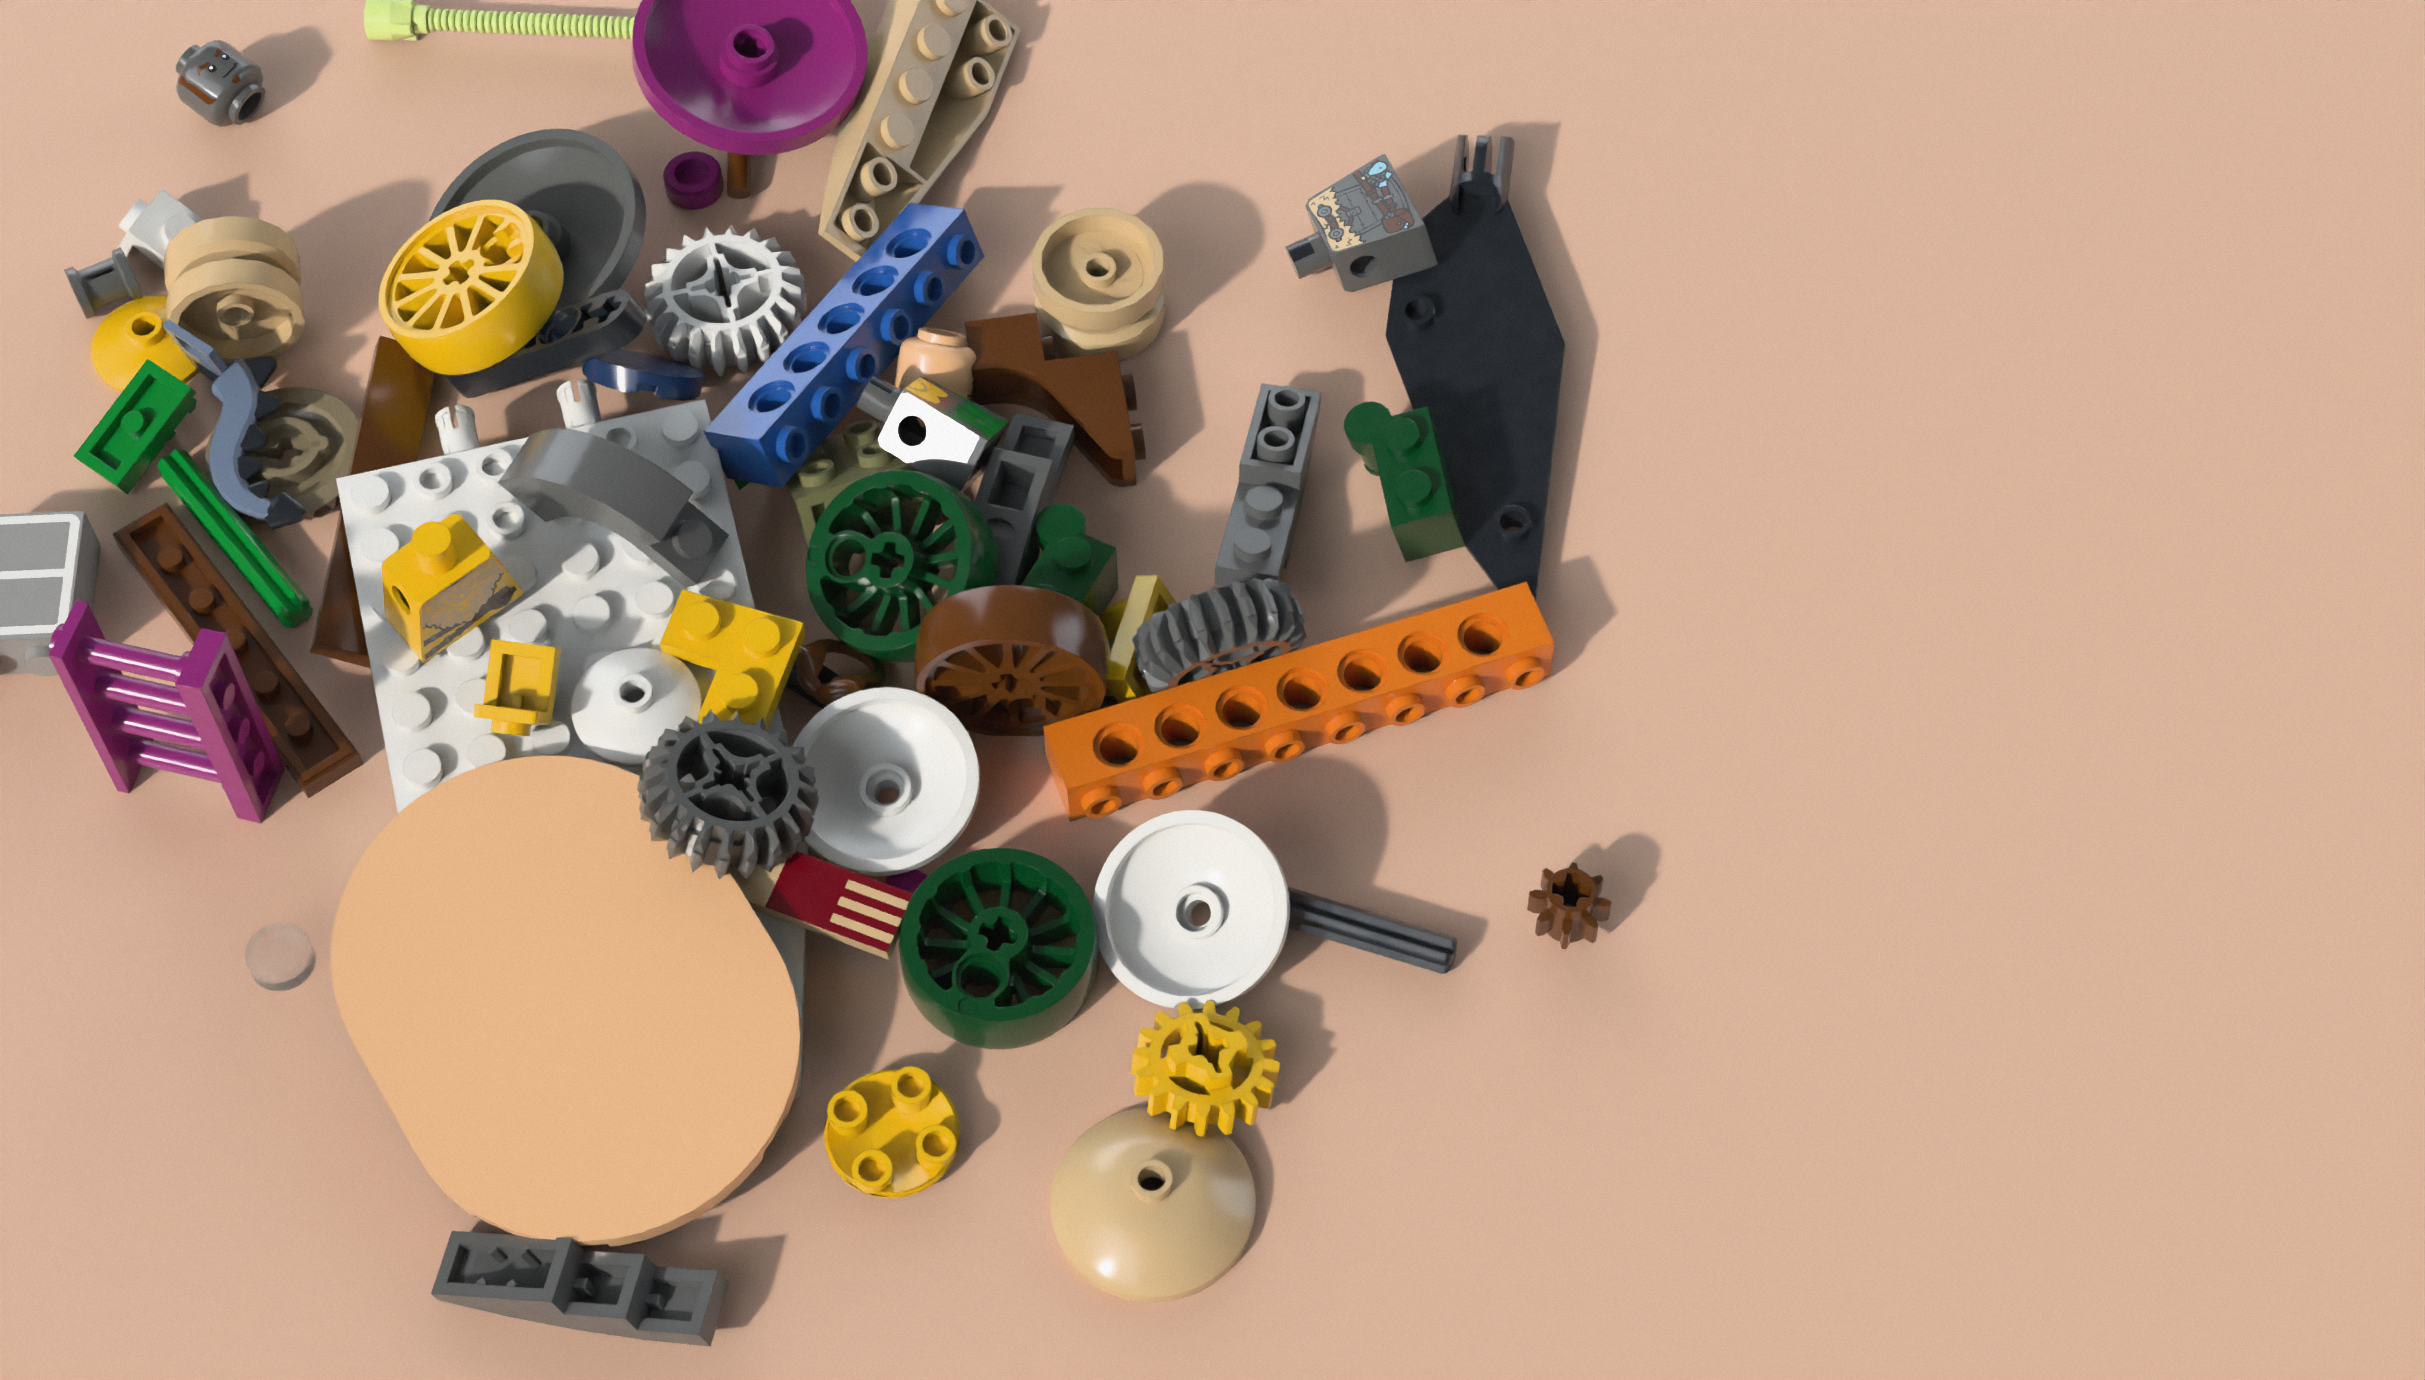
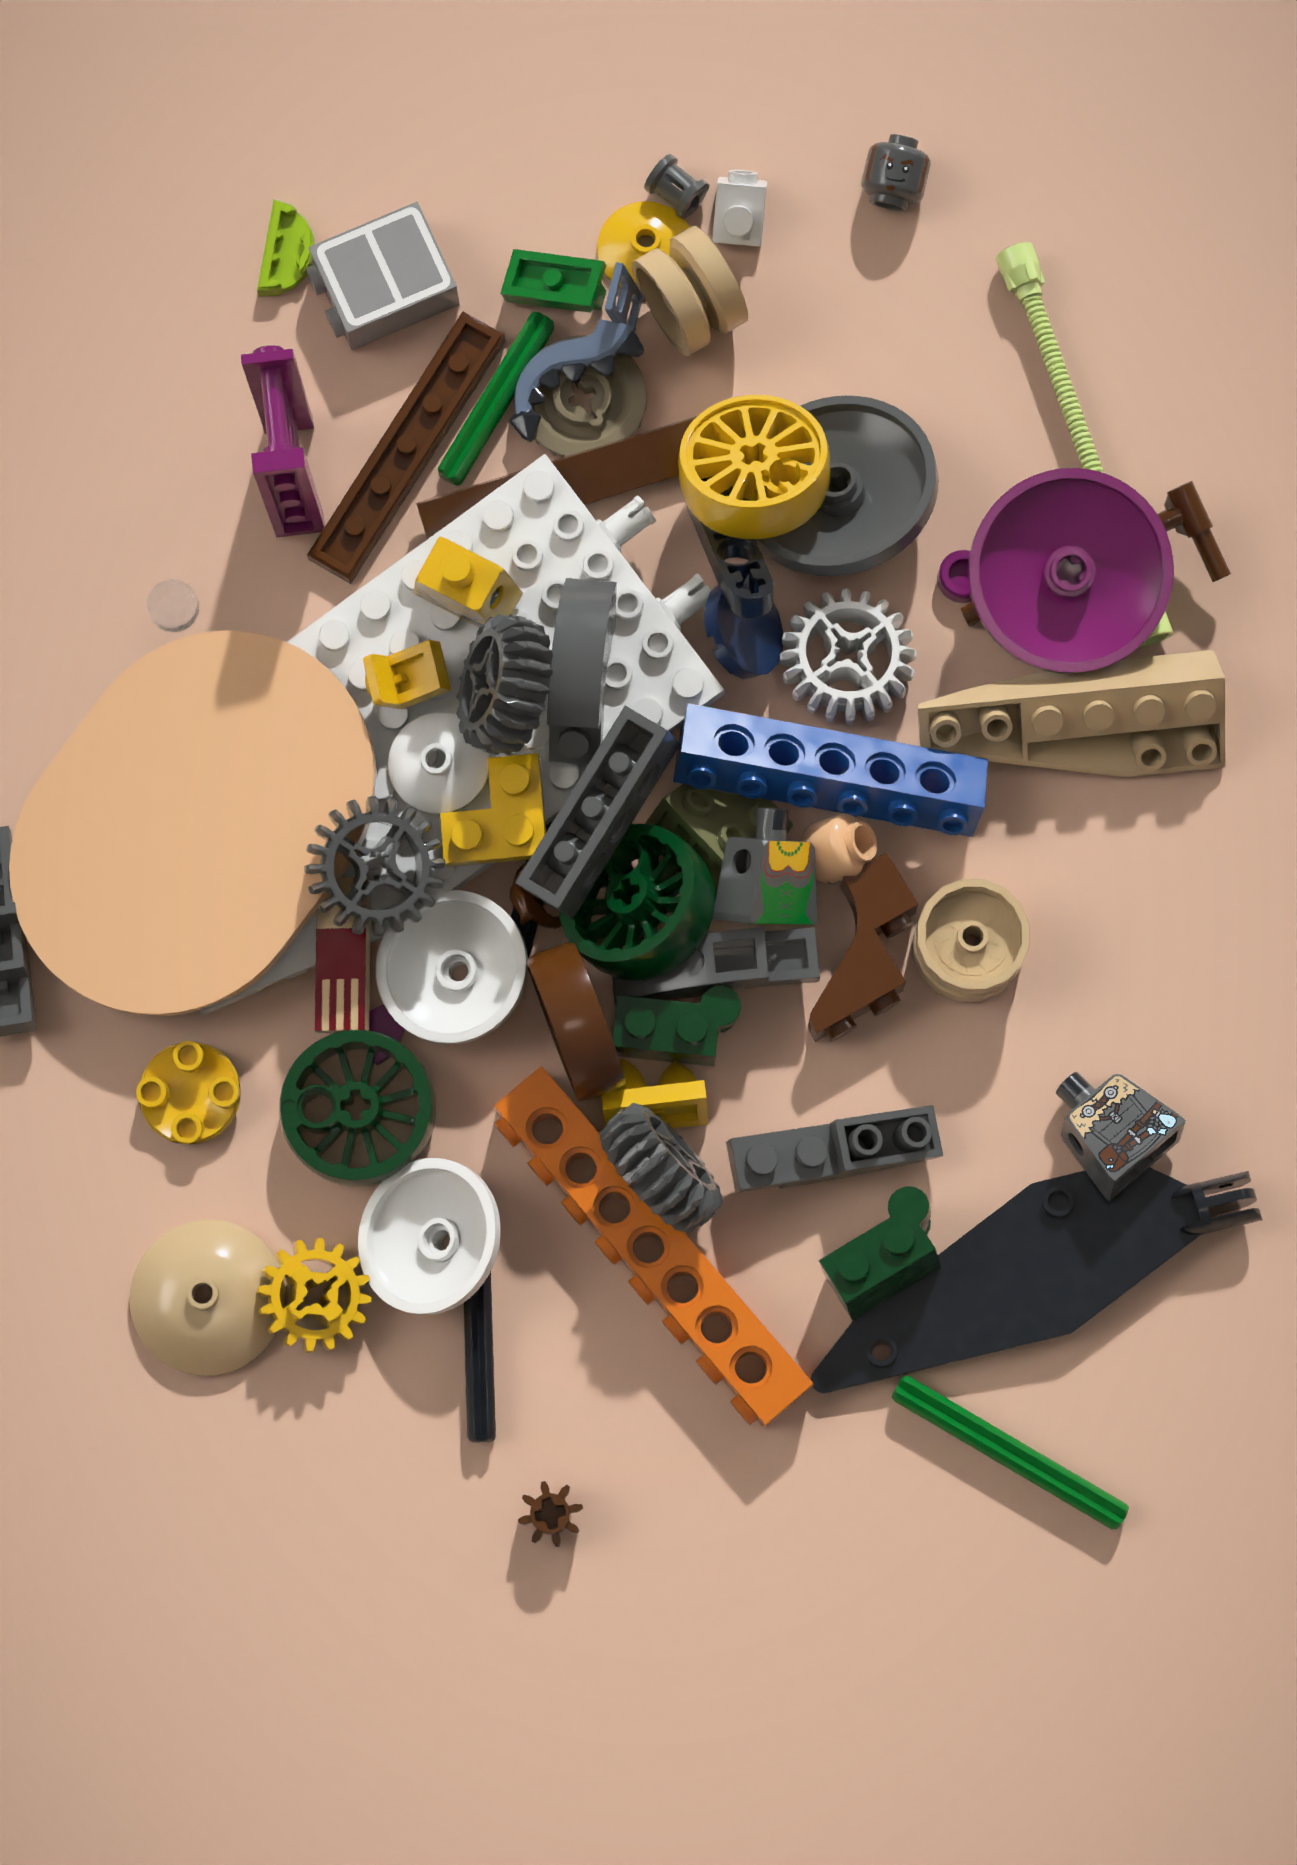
camera: 70 degrees right, 20 degrees up
(561, 543) = (504, 684): none -> dark grey gear
(786, 544) = (598, 812): none -> dark grey brick
(1669, 450) = (1010, 1452): none -> green axle

